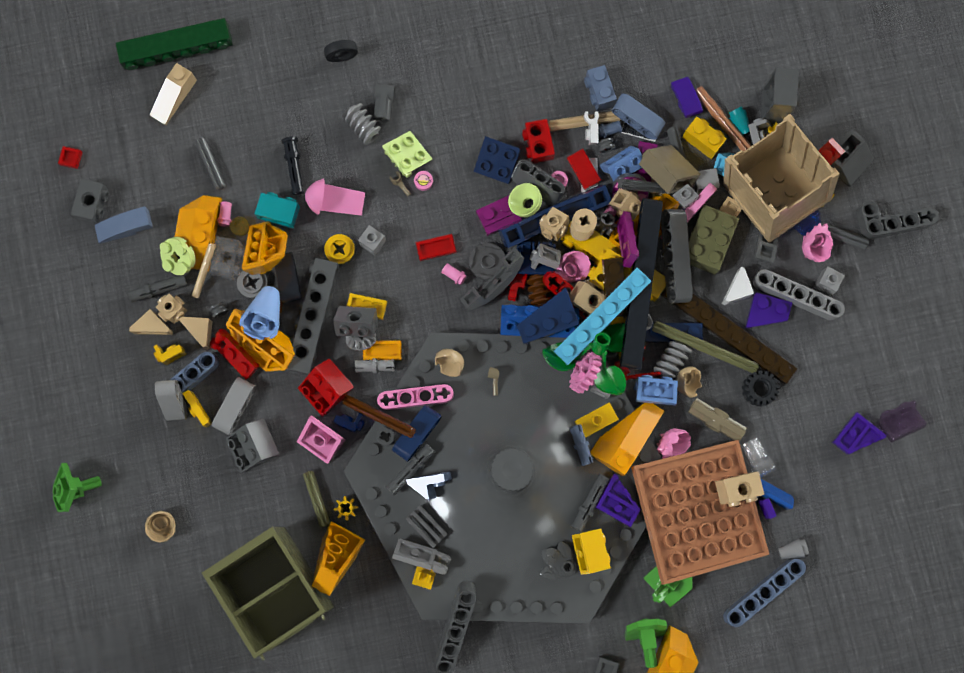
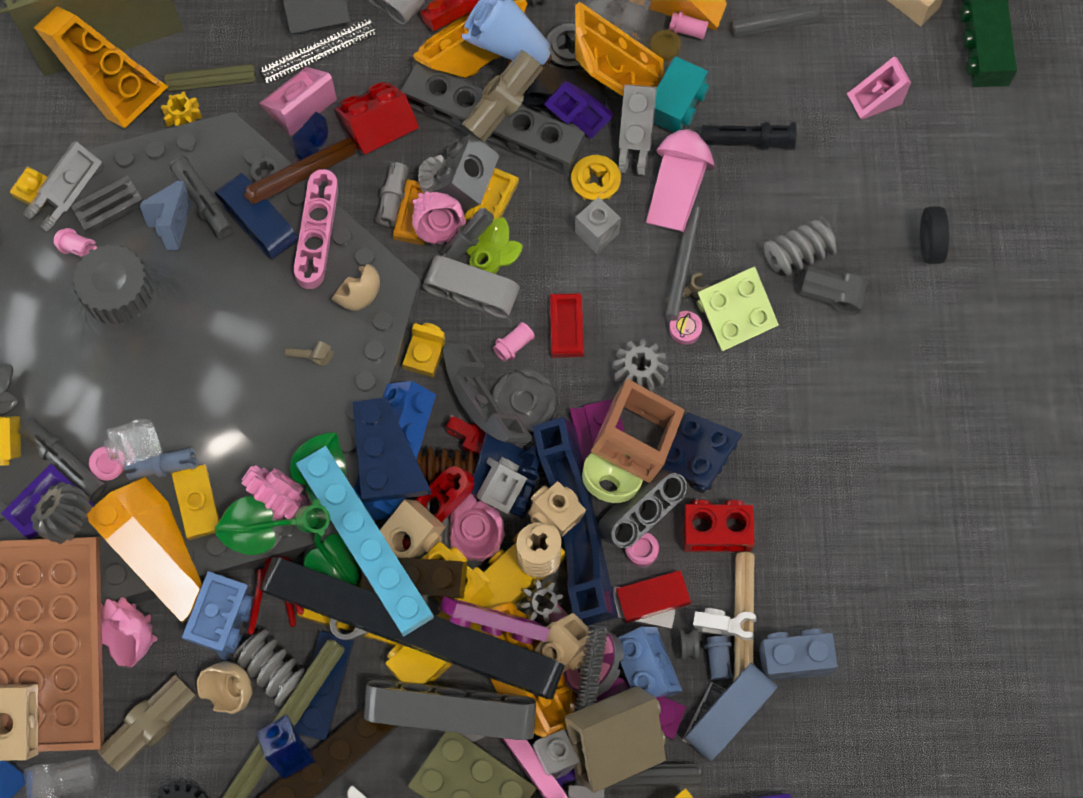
camera: 105 degrees right, 10 degrees down
(249, 95) = (881, 90): none -> bright pink slope
(284, 436) = (317, 49): none -> axle
(300, 263) = (580, 108): none -> dark purple slope
(304, 228) = (637, 125): none -> light grey hinge
(306, 306) = (502, 95): none -> dark tan piece
(387, 188) = (682, 265): none -> dark grey bar
(388, 332) = (437, 217): none -> bright pink hair
(395, 299) = (496, 245): none -> lime plate
(395, 312) = (468, 234): none -> dark grey axle
(425, 305) = (471, 287): none -> light grey beam
(447, 200) = (652, 363): none -> light grey gear
(456, 541) = (70, 242): none -> bright pink pin
(469, 323) = (424, 349): none -> yellow bracket
(512, 196) = (613, 444): none -> nougat window
(576, 459) = (132, 442): none -> clear brick
(586, 476) = (103, 467): none -> bright pink tile
(627, 486) = (61, 512): none -> dark grey gear
(713, 340) = (284, 747): none -> clear blue bracket

